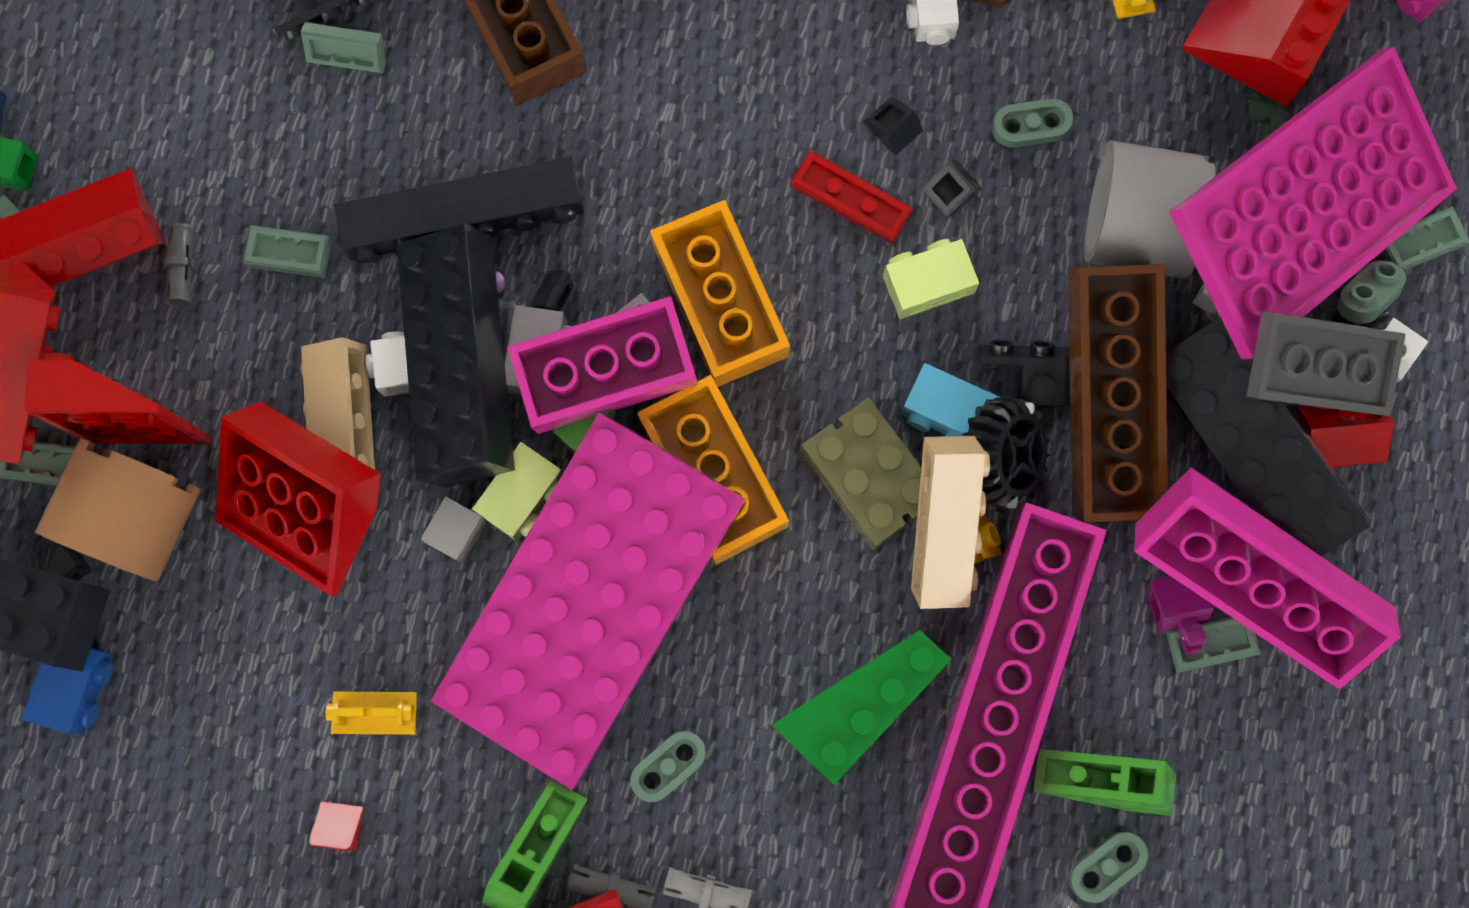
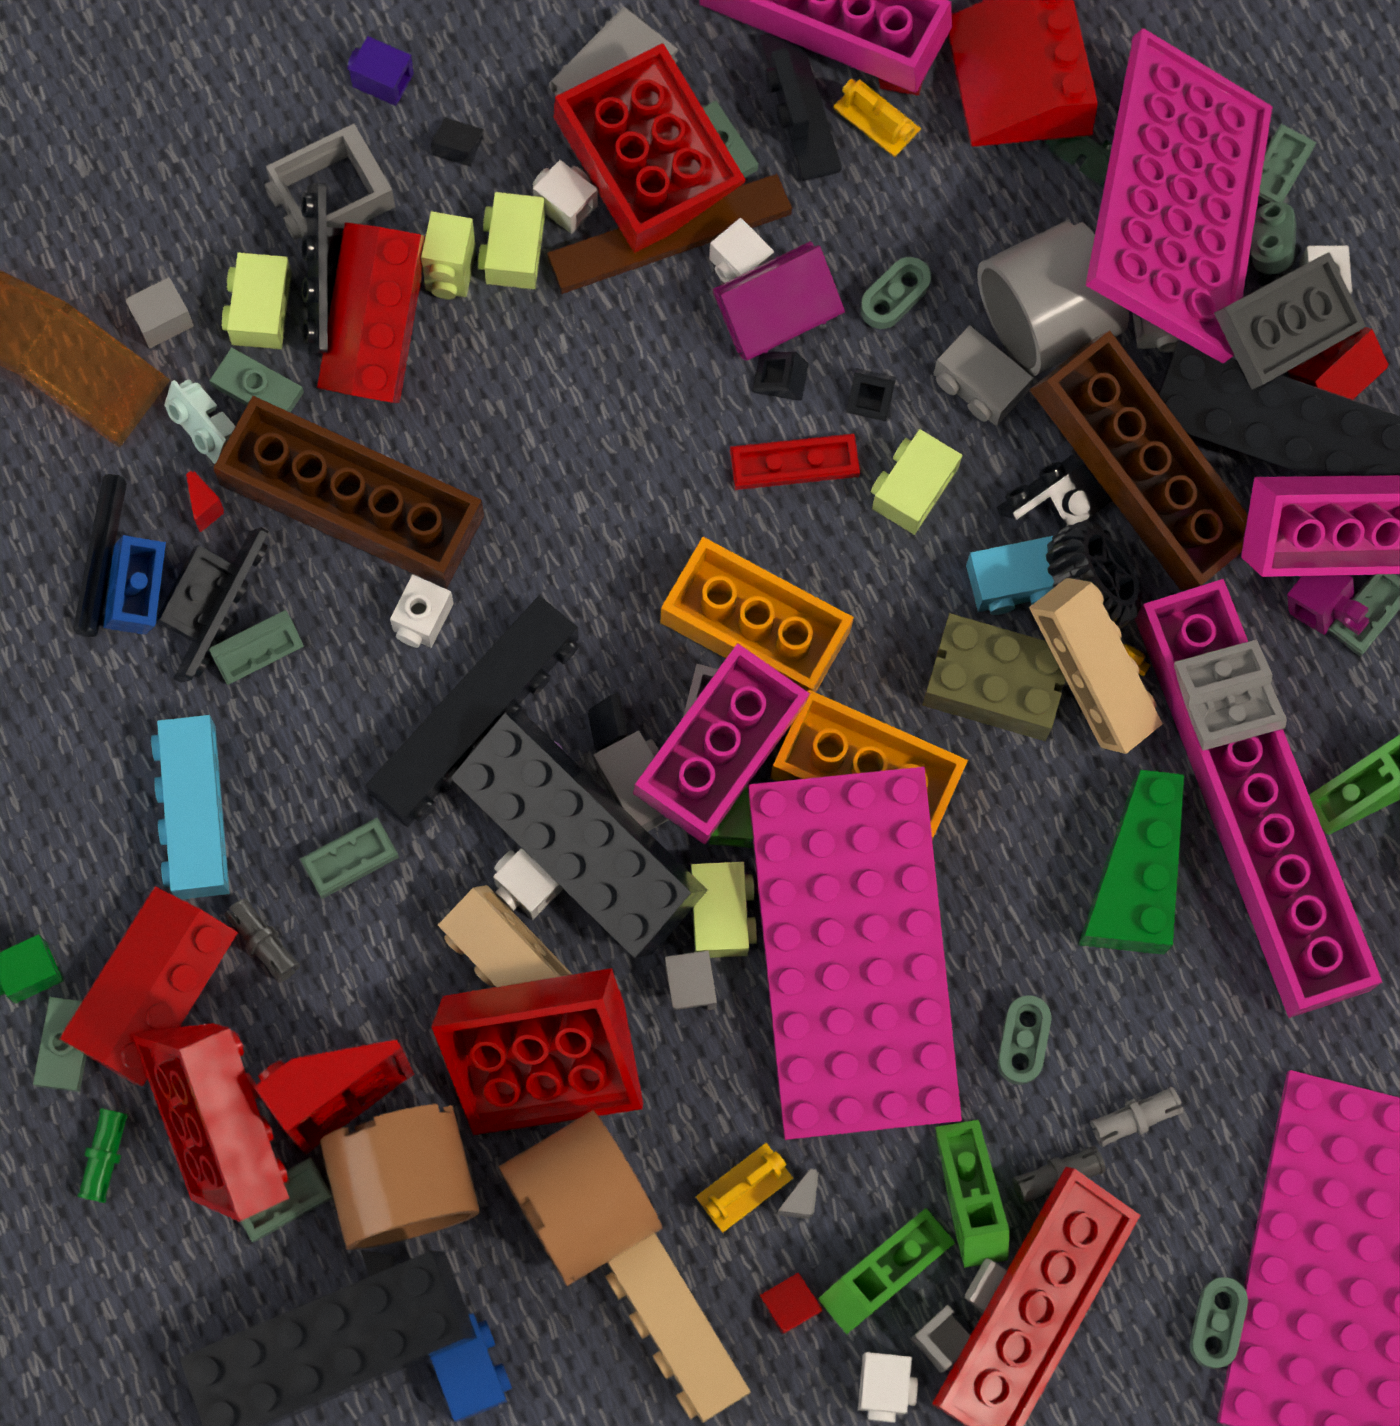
camera: 45 degrees left, 5 degrees down
(203, 130) = (191, 807): none -> medium azure brick
(231, 627) = (580, 1197): none -> medium nougat brick
(235, 780) = (678, 1329): none -> tan brick
(405, 756) = (802, 1199): none -> light grey slope
(424, 858) = (886, 1271): none -> bright green slope
(480, 108) = (421, 612): none -> white brick
(934, 63) = (778, 300): none -> magenta piece
(1035, 625) = (1229, 695): none -> light grey slope
(1046, 234) = (982, 376): none -> light grey brick

